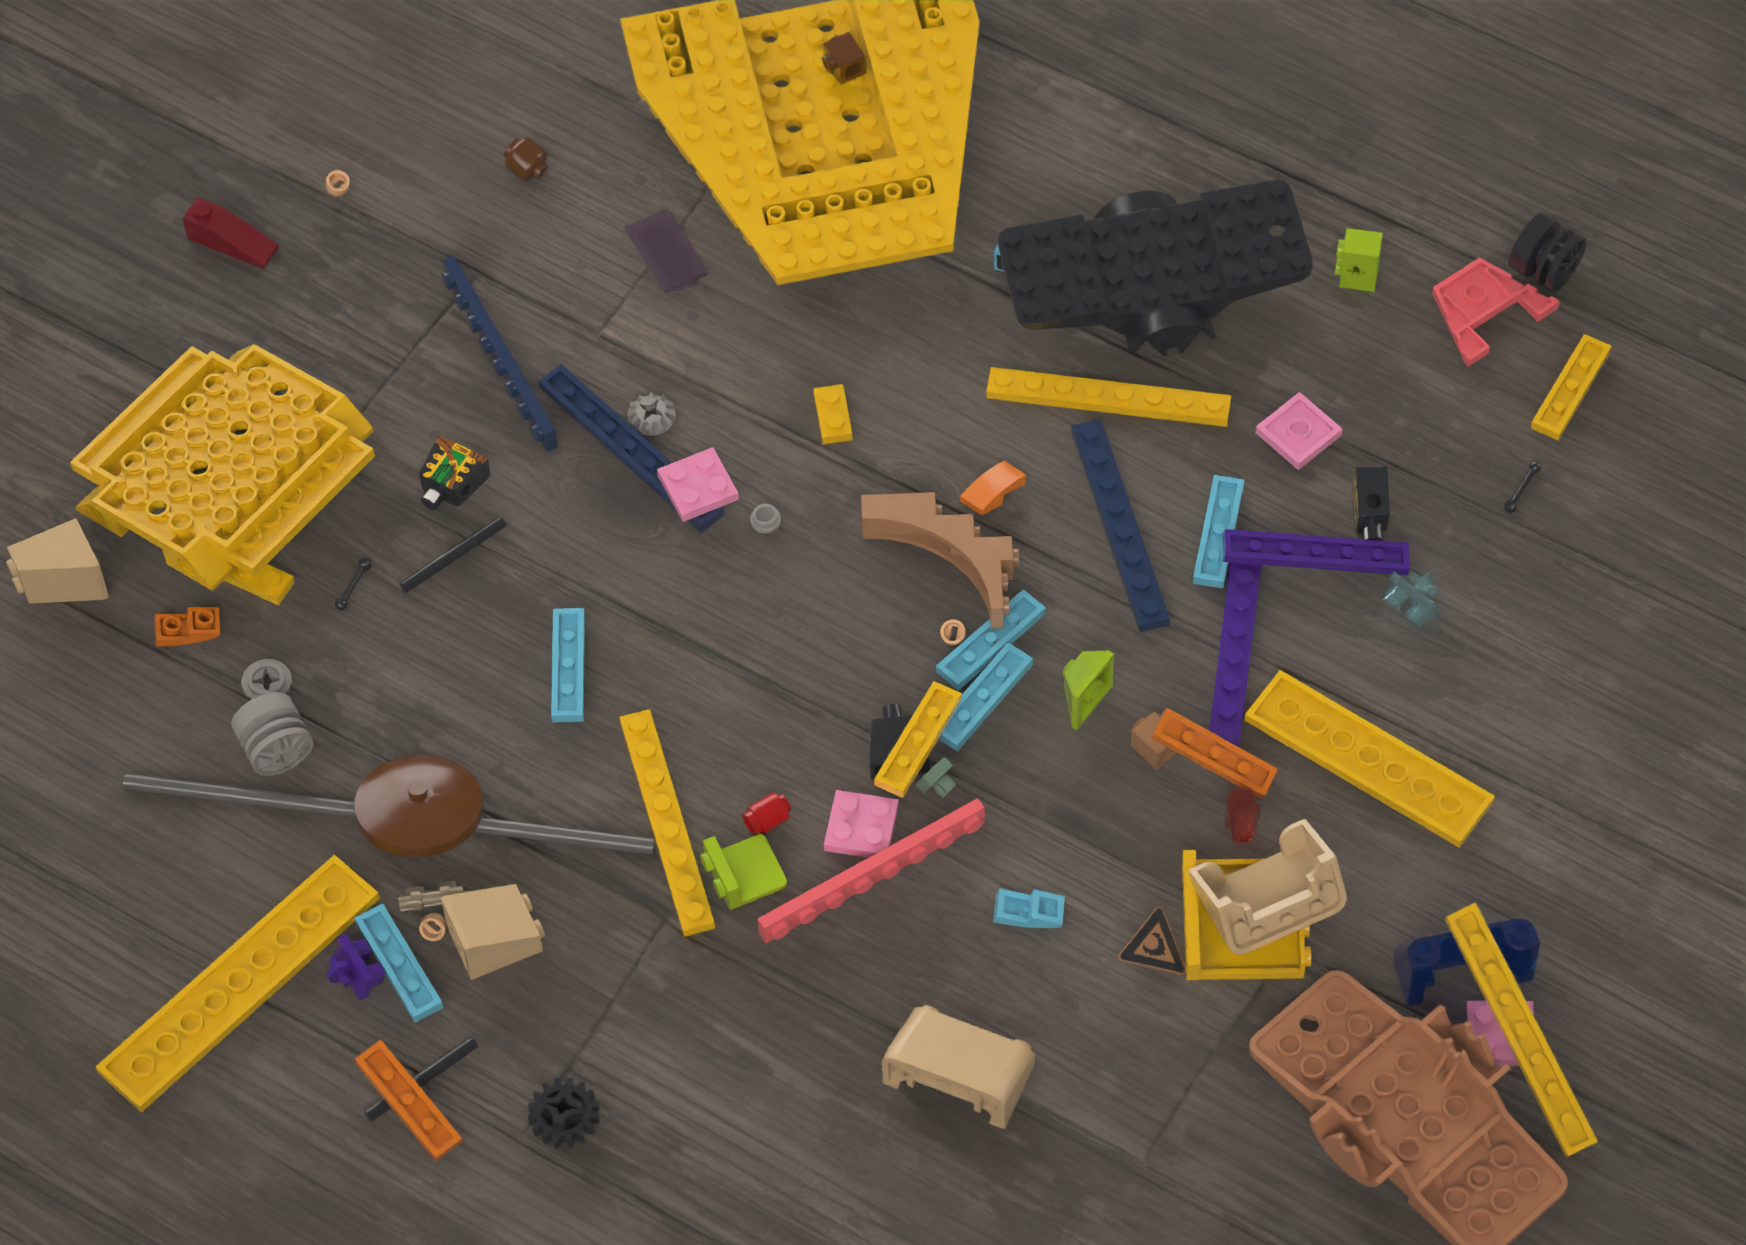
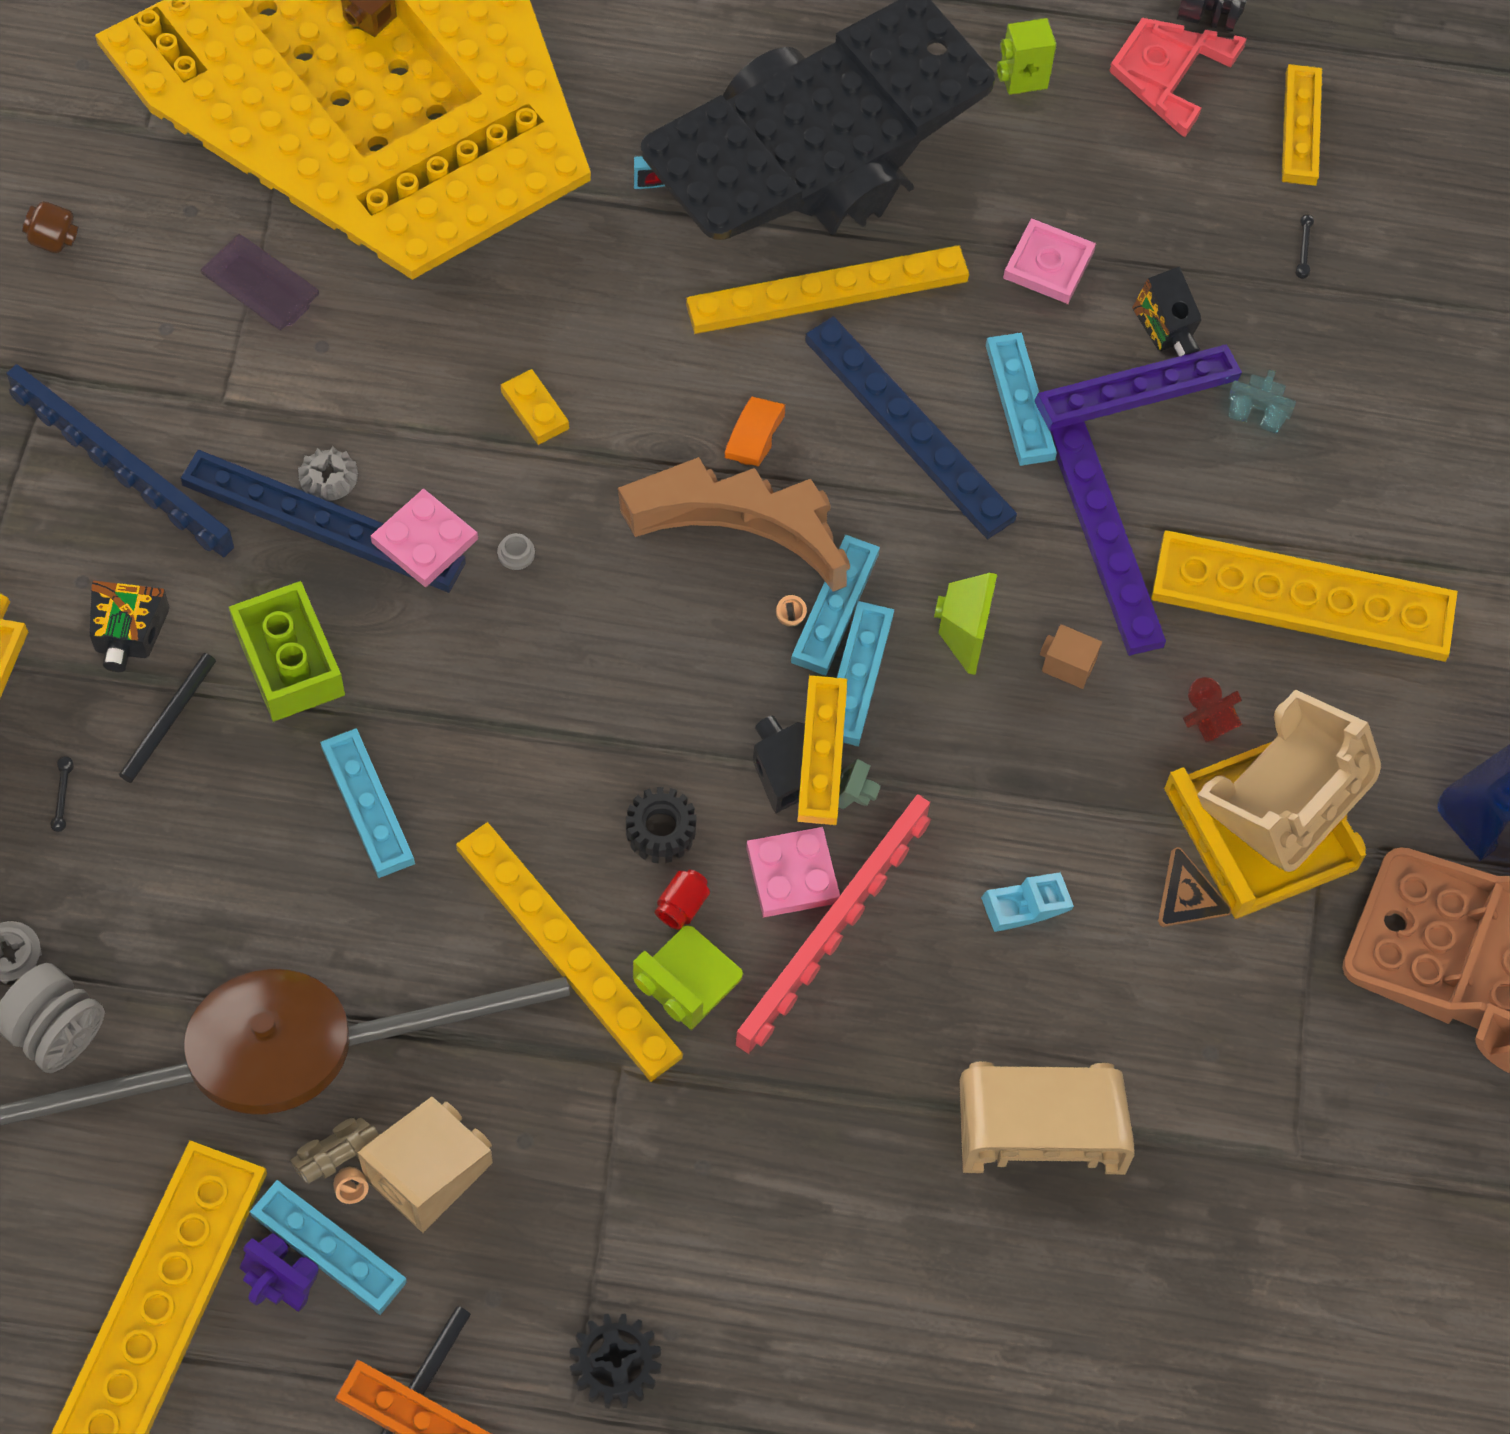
camera: 30 degrees left, 5 degrees up
(557, 534) = (287, 651): none -> lime brick
(777, 740) = (666, 804): none -> black tyre
(1214, 753) = (1147, 648): orange plate -> none

